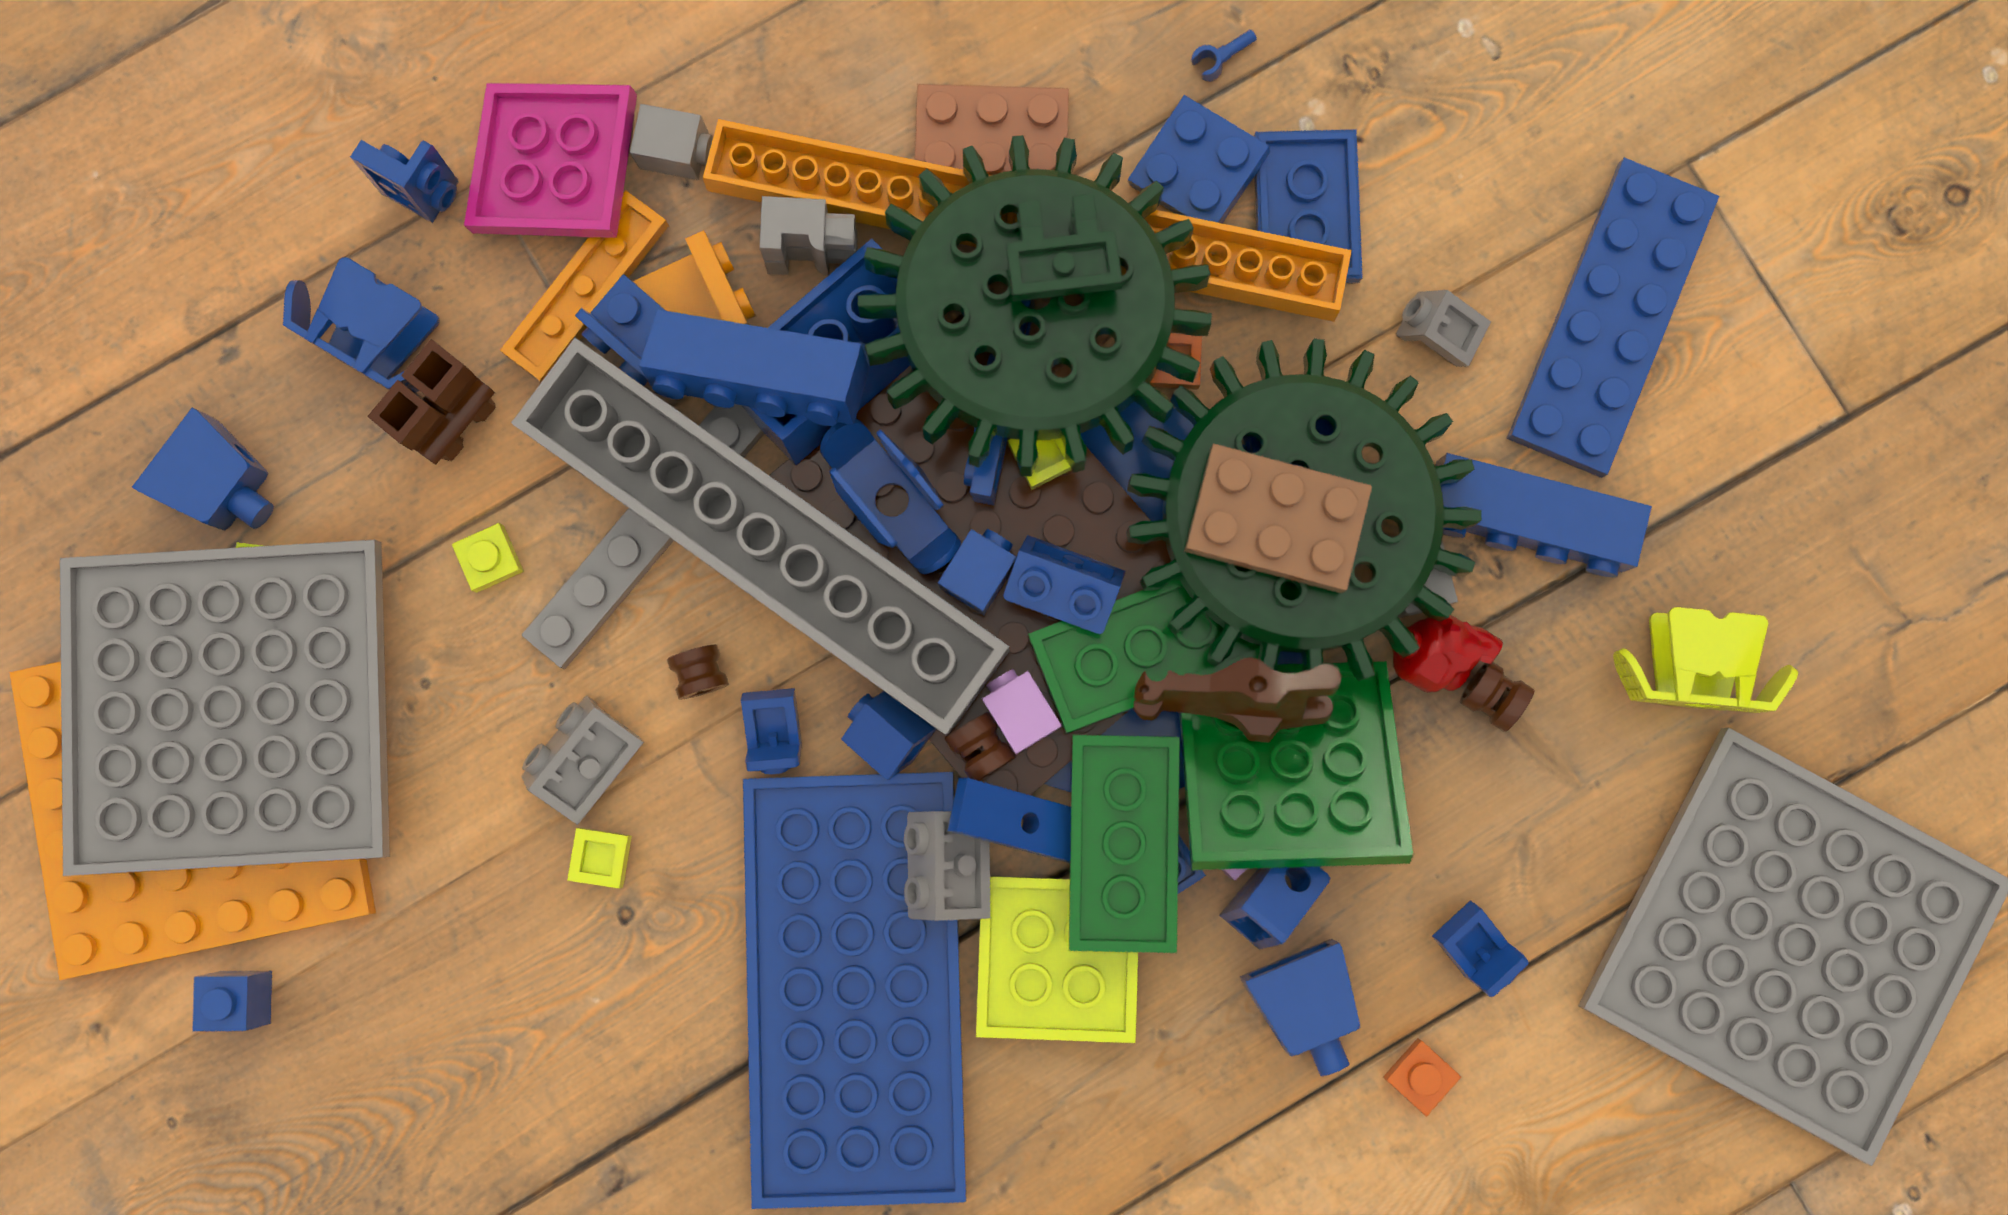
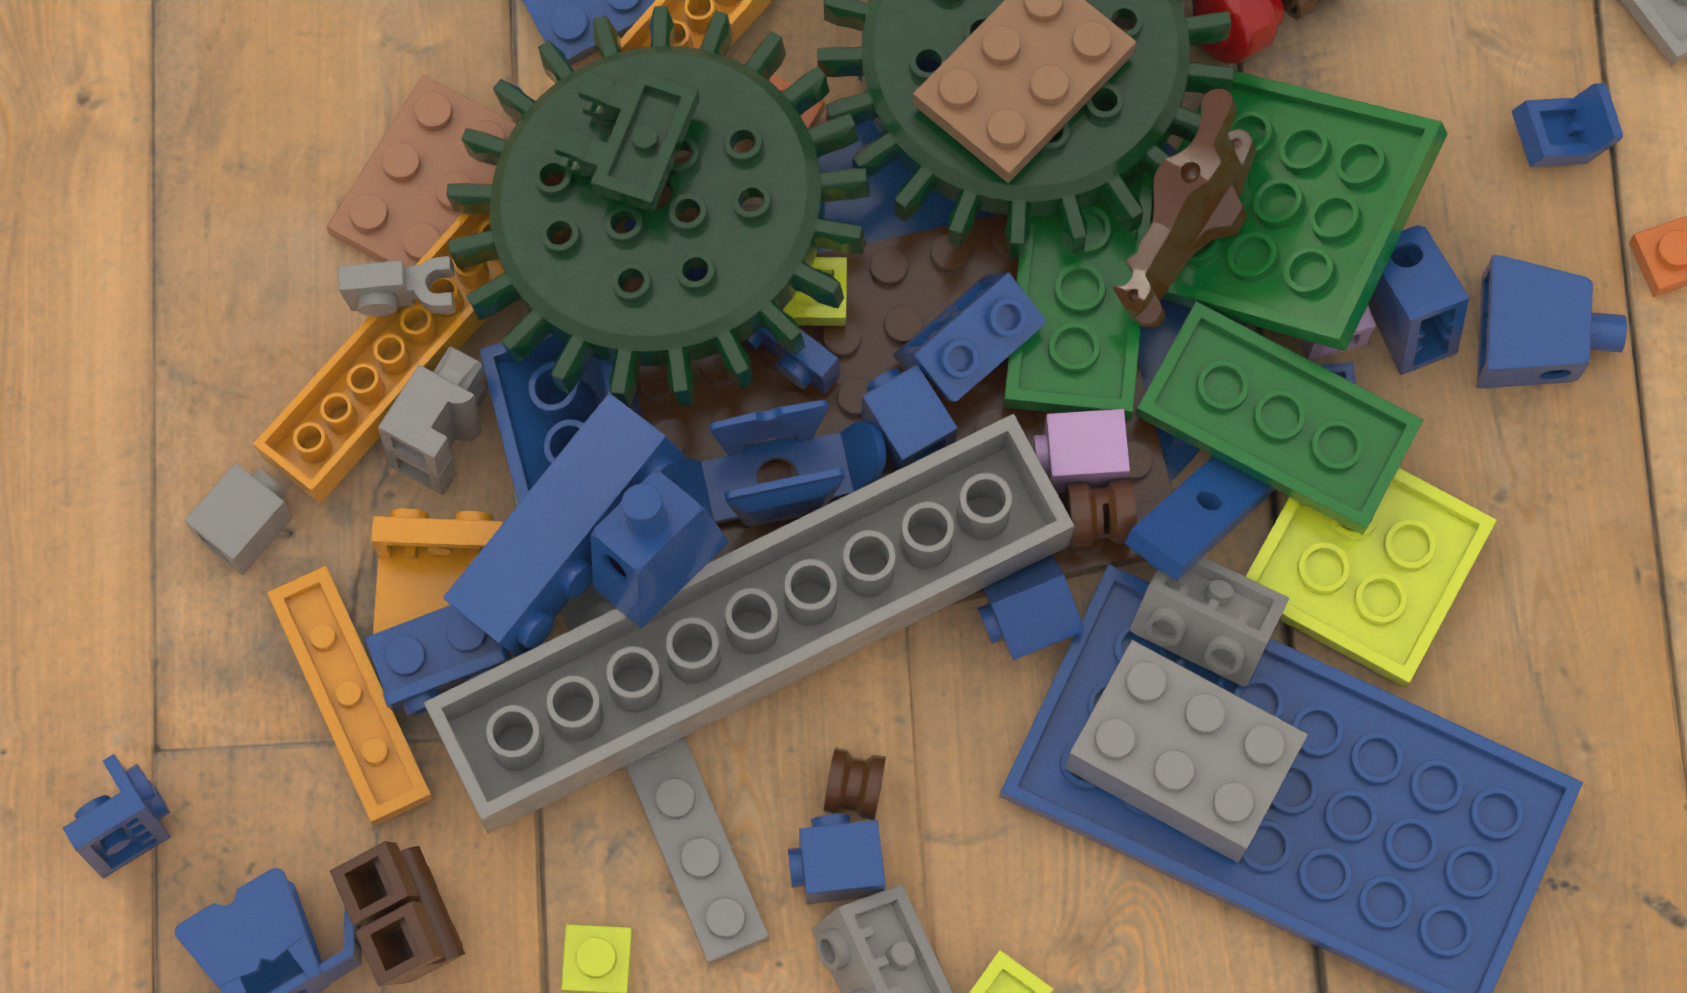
camera: 70 degrees left, 10 degrees down
(551, 160) = (186, 655): dark pink plate -> none
(636, 688) = (837, 859): none -> blue brick
(763, 437) = (657, 542): none -> blue torso
(771, 730) = (962, 735): blue bracket -> none
(828, 900) = (1185, 751): none -> light grey brick
(871, 143) = (384, 286): none -> light grey plate

